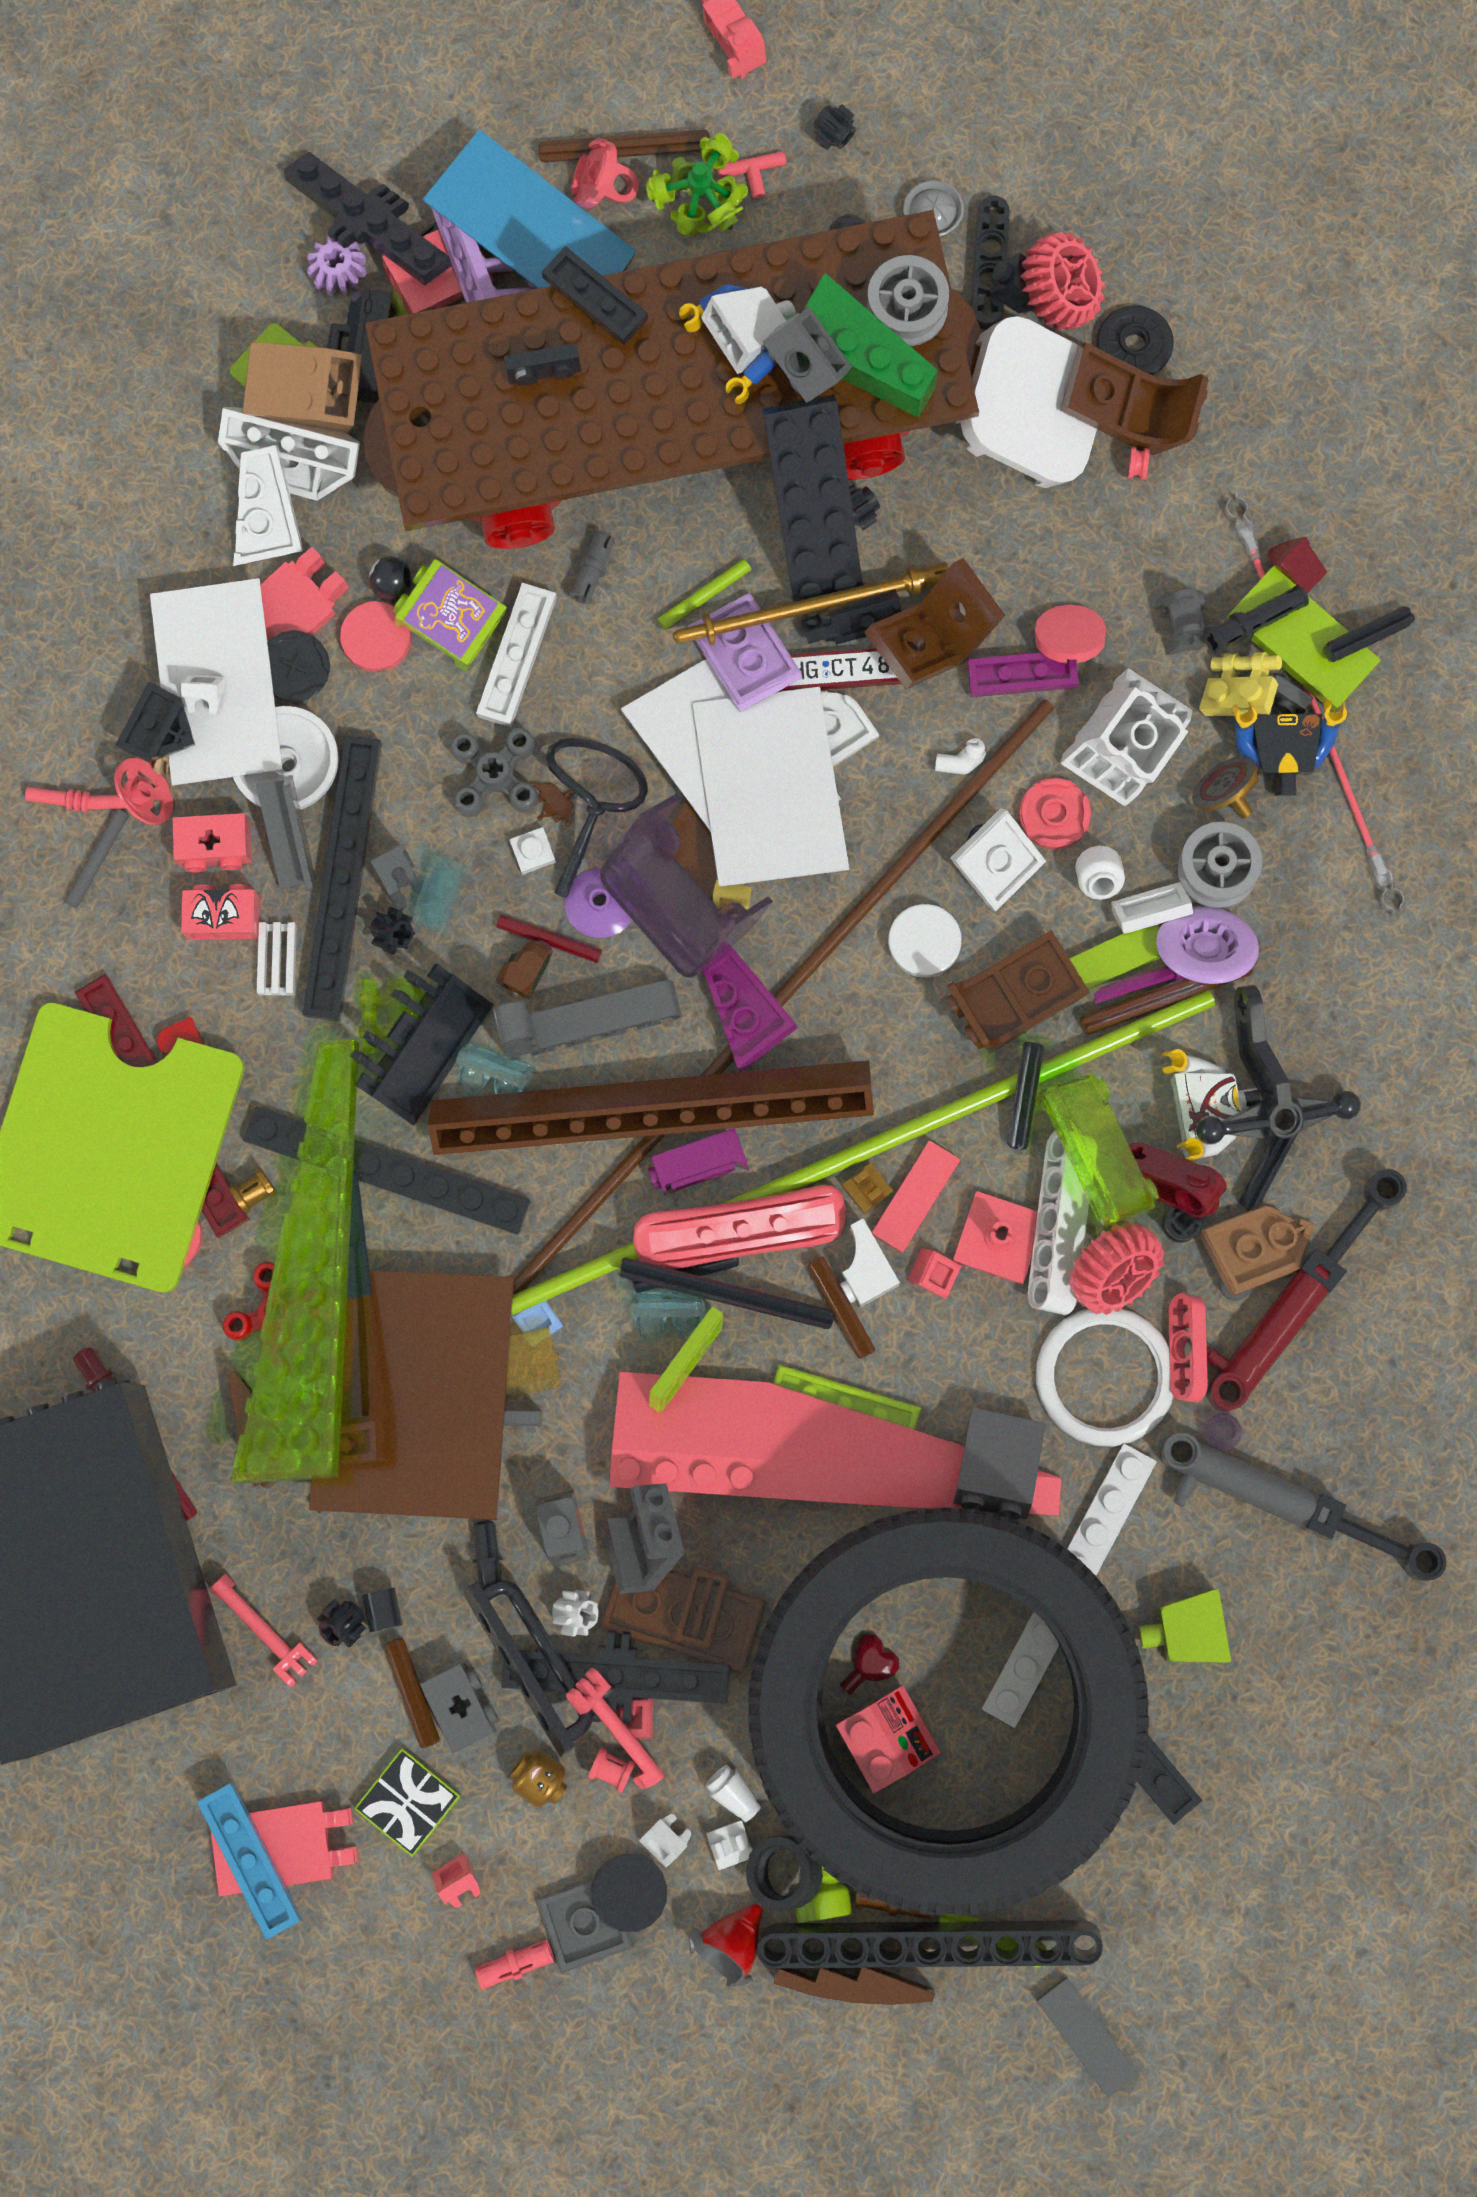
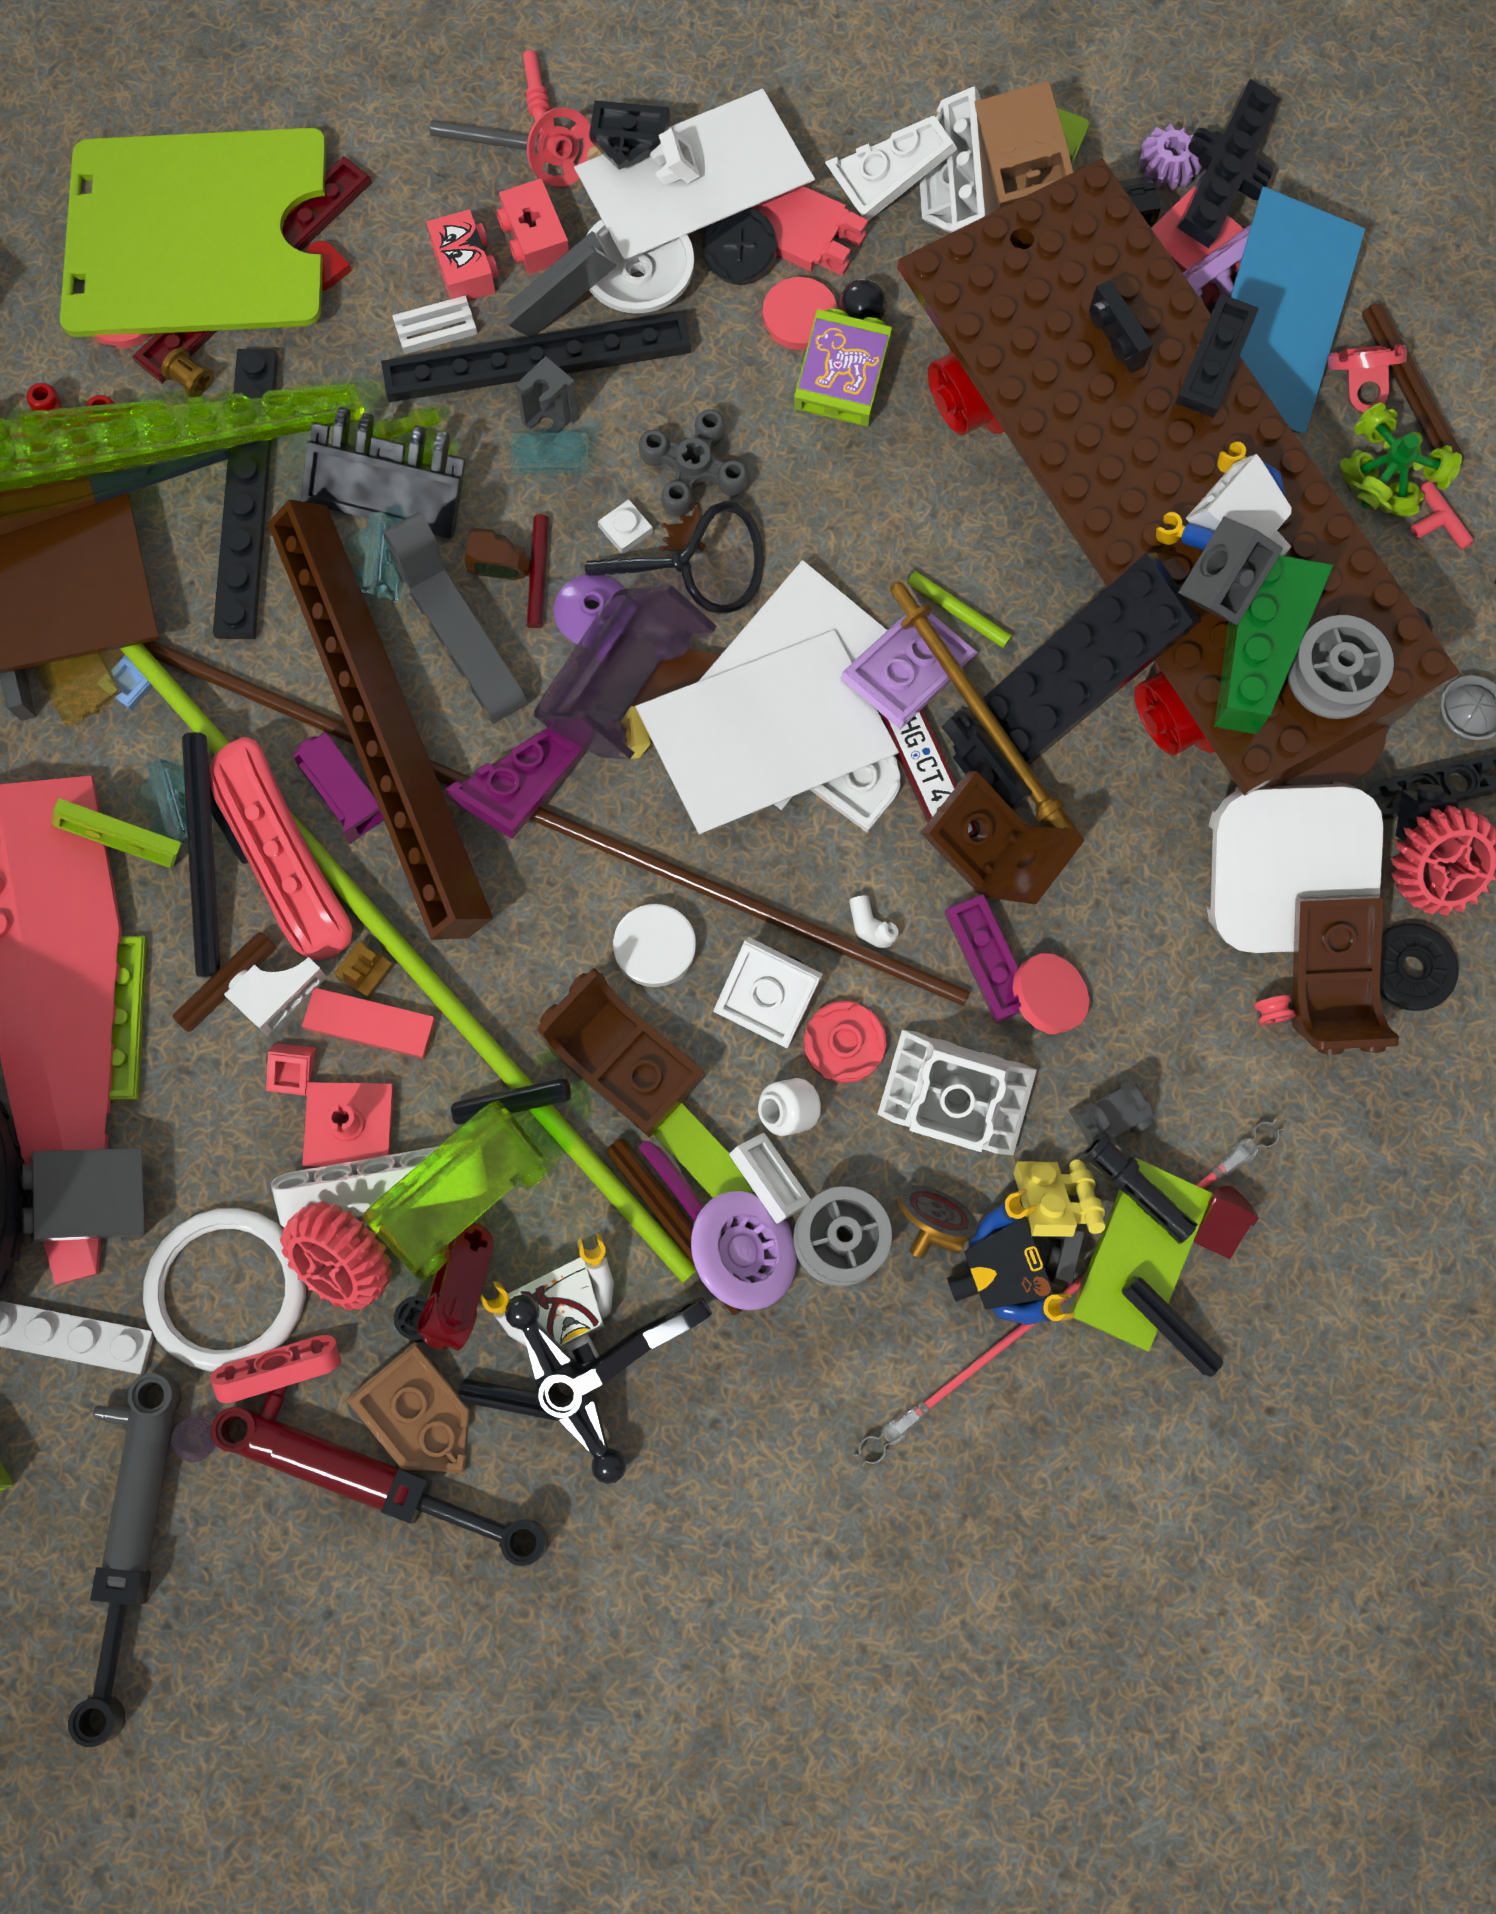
camera: 60 degrees right, 5 degrees down
(391, 930) = (490, 425): black gear -> none
(516, 655) = (826, 447): white plate -> none
(592, 567) = (946, 490): dark grey pin -> none
(863, 506) = (1110, 729): black gear -> none

